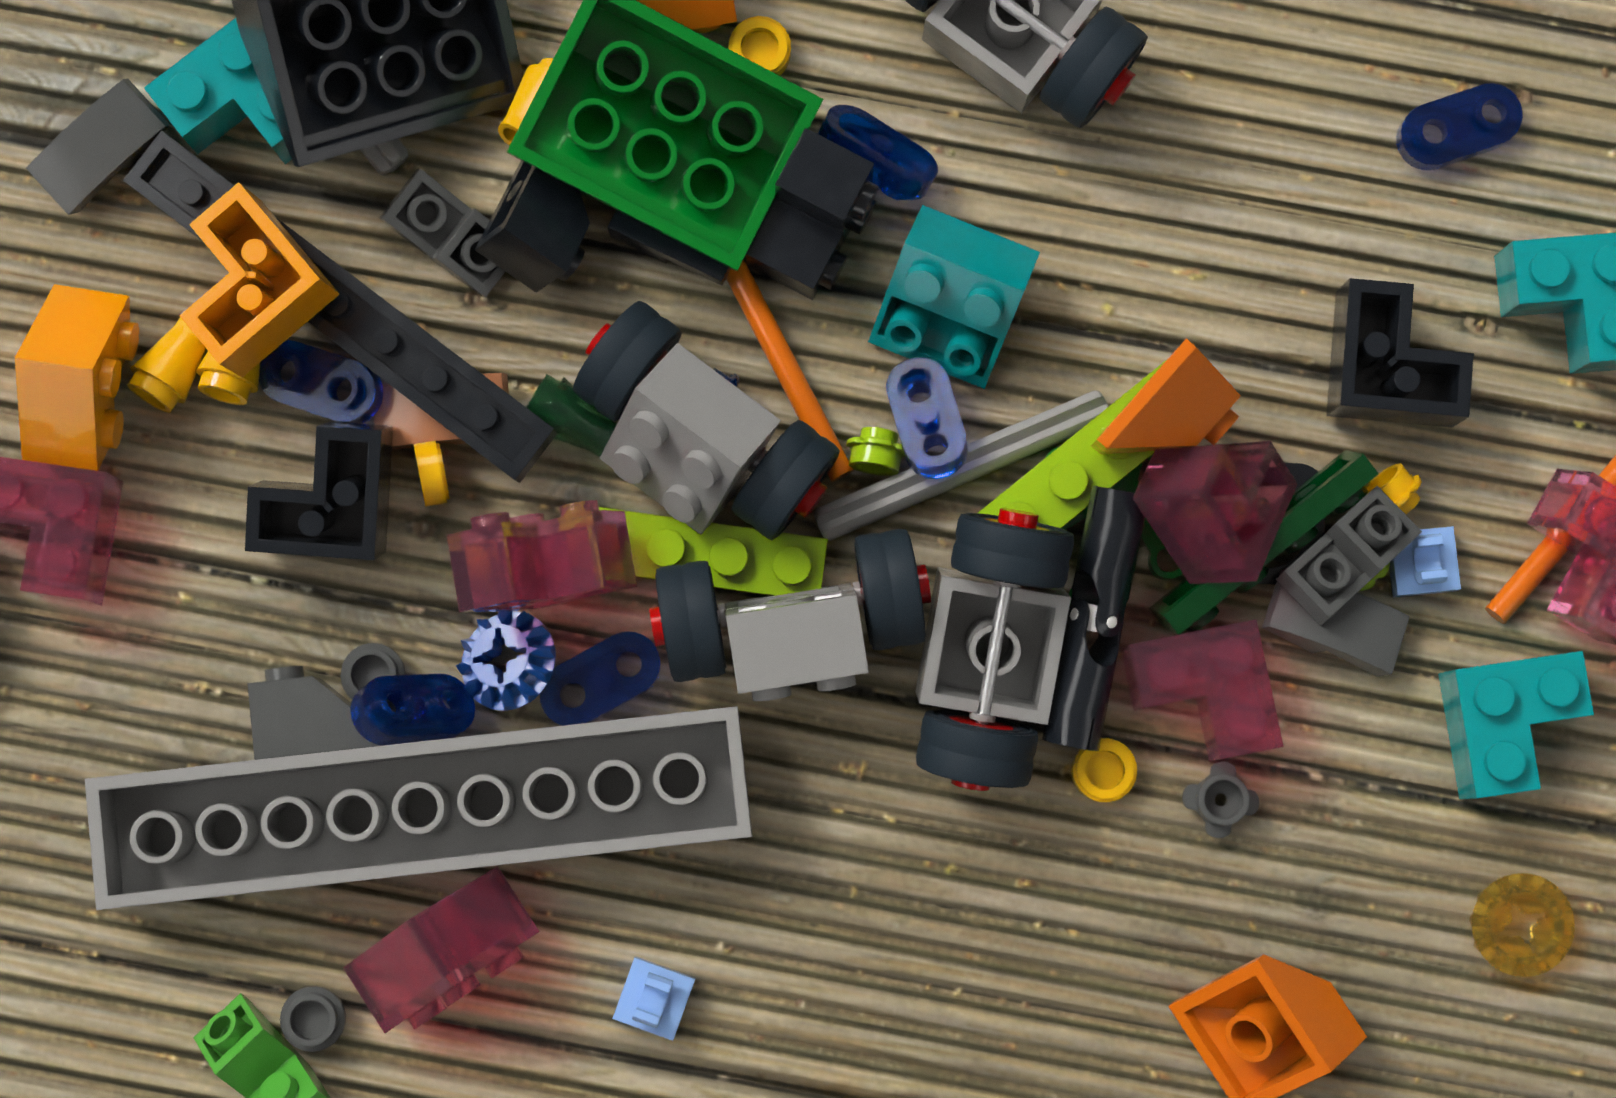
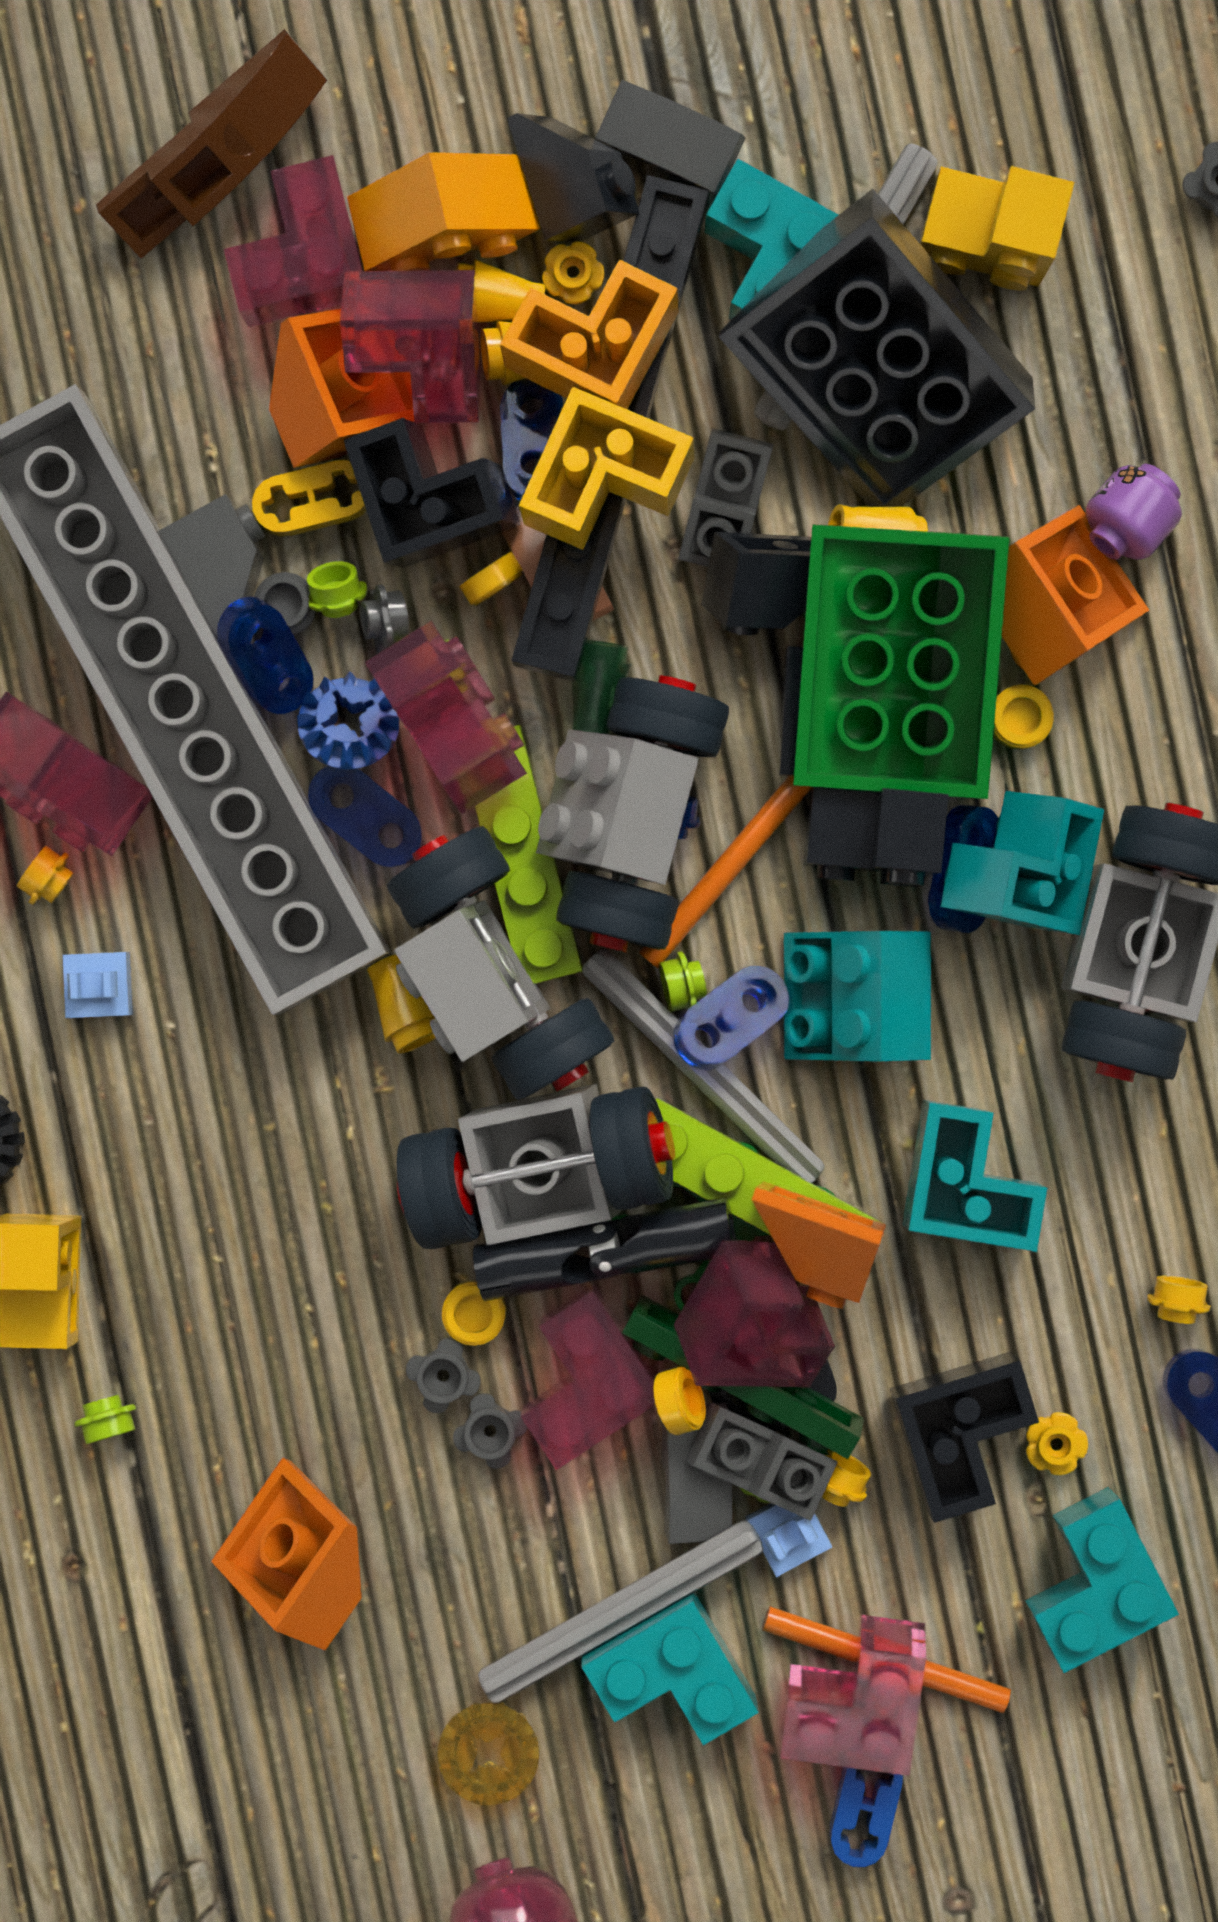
camera: 75 degrees right, 5 degrees up
(98, 247) = (572, 178): none -> black slope
(169, 273) = (576, 289): none -> yellow plate
(170, 437) = (419, 327): none -> clear pink brick
(188, 539) = (319, 402): none -> orange slope
(270, 607) = (308, 483): none -> yellow beam
(357, 317) = (598, 452): none -> yellow brick
(379, 621) = (335, 589): none -> lime plate
(424, 586) = (384, 617): none -> dark grey plate
(532, 1004) = (45, 876): none -> yellow plate
(798, 719) = (402, 1016): none -> yellow cone
(902, 85) = (1037, 866): none -> teal brick
(1164, 280) = (954, 1196): none -> teal brick
(1166, 833) = (440, 1393): none -> dark grey plate
(1263, 605) = (679, 1401): none -> yellow tile
(1348, 120) = (1179, 1299): none -> yellow plate
(1437, 746) = (620, 1611): none -> light grey axle
(1454, 284) = (1073, 1440): none -> yellow plate

